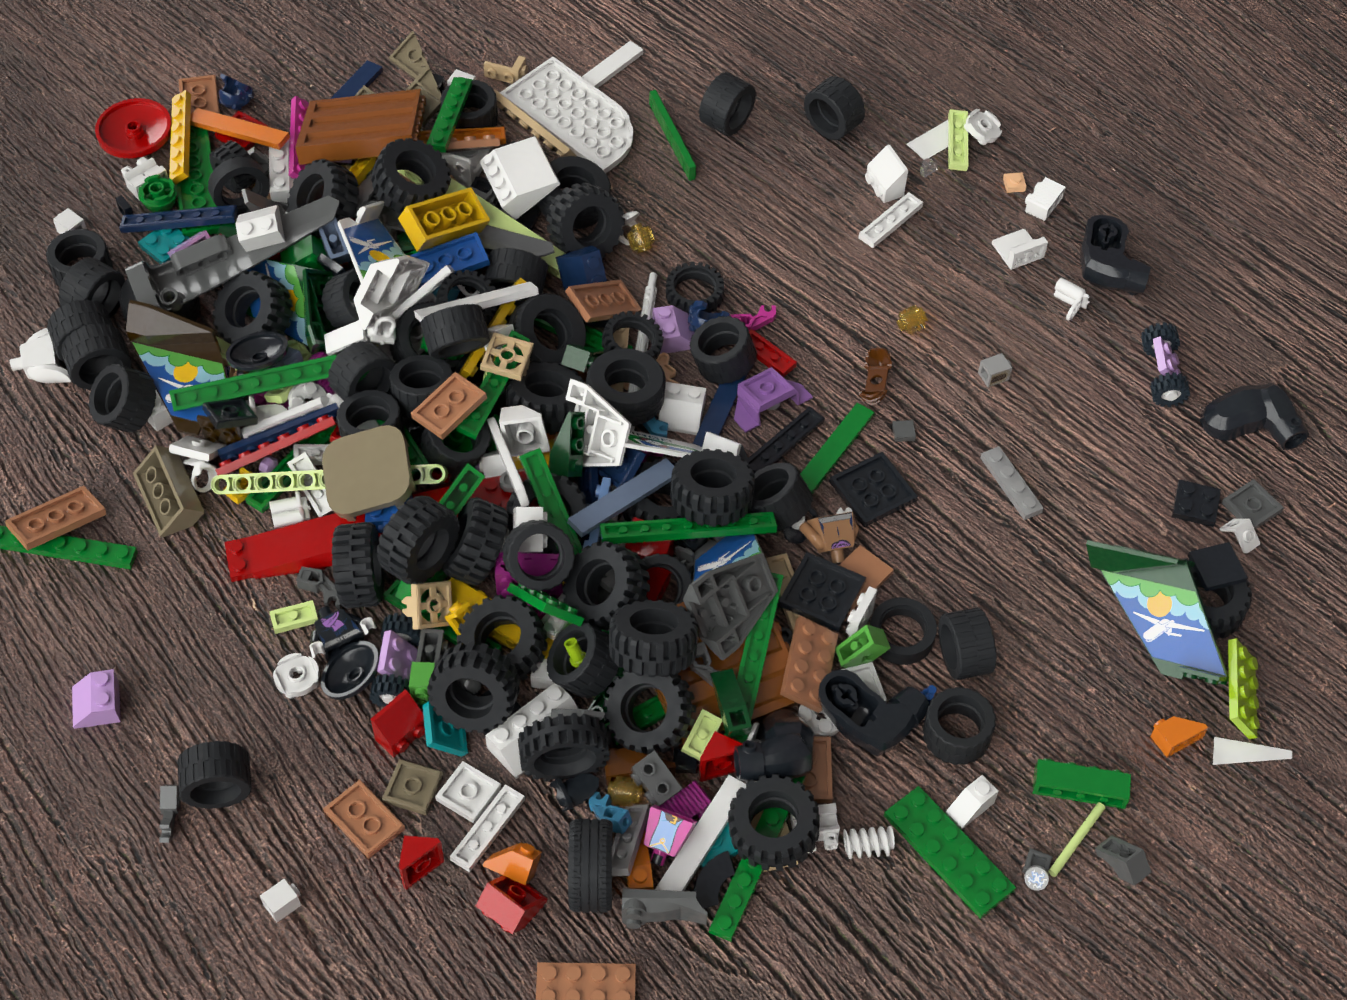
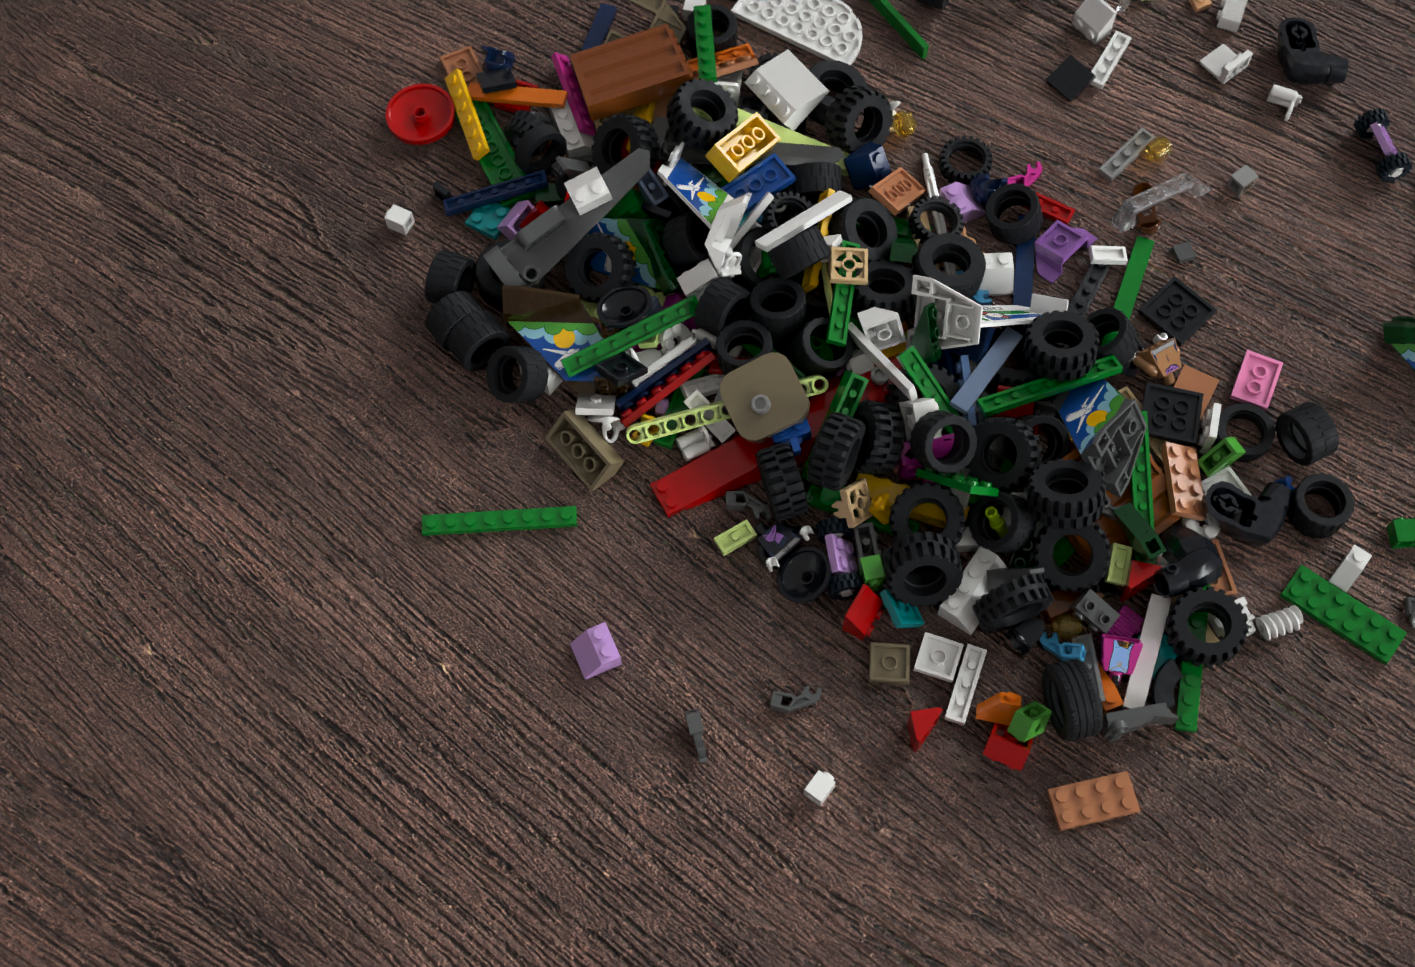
camera: 10 degrees left, 10 degrees up
(40, 360) = (425, 352): white torso -> none
(55, 517) = (498, 496): nougat plate -> none
(74, 245) = (413, 237): black tyre -> none
(135, 177) = (448, 159): white hips -> none
(158, 193) = (467, 173): green cone -> none
(214, 774) = (729, 695): black tyre -> none
(222, 109) = (496, 80): none -> black tile
(291, 804) = (801, 701): none -> dark grey piece
(300, 686) = (754, 599): white plate -> none
(358, 476) = (760, 404): none -> light grey tile
(364, 819) = (859, 700): nougat tile -> none
(448, 405) = (816, 322): nougat plate -> none
(537, 130) = (777, 40): tan plate -> none
(538, 880) = (1029, 721): none -> bright green brick
(815, 414) = (1107, 255): none -> white tile
(841, 229) = (1070, 78): none -> black tile
(849, 379) = (1126, 215): none -> clear slope
(873, 319) = (1125, 155): none -> light grey tile
(937, 579) = (1256, 380): none -> bright pink plate
(1011, 483) = (1287, 279): light grey plate -> none

